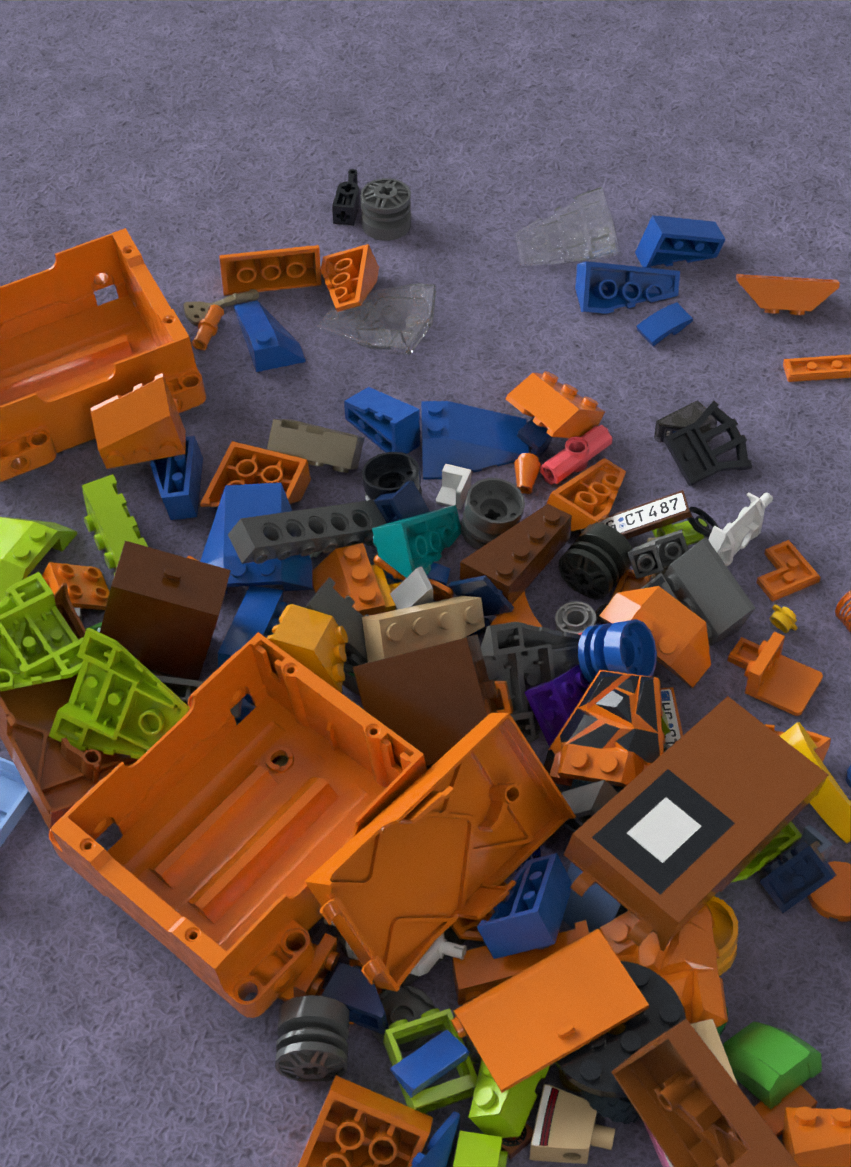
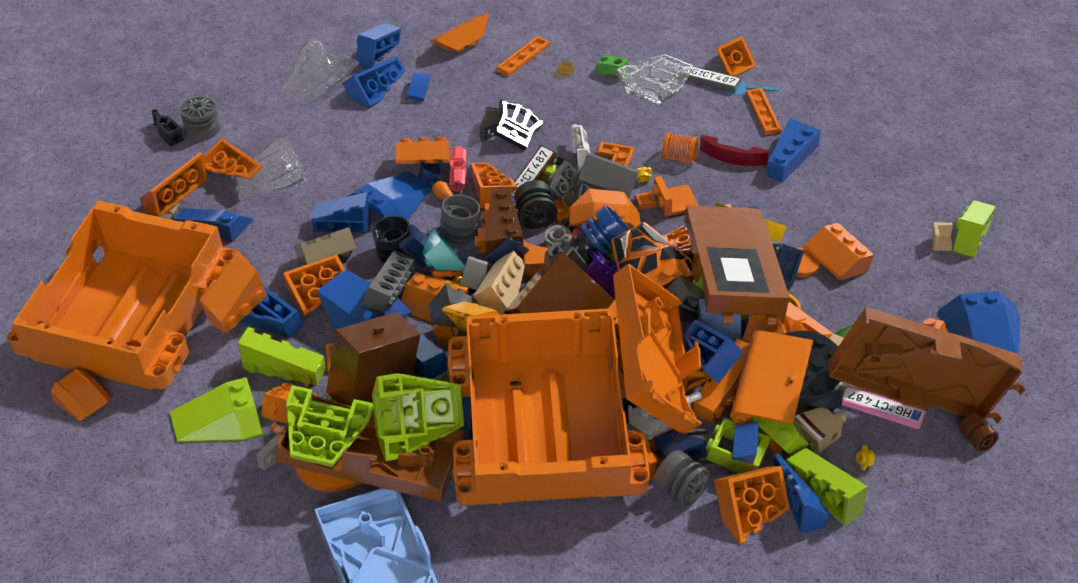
camera: 45 degrees left, 5 degrees down
(455, 486) = (419, 219): white panel -> none

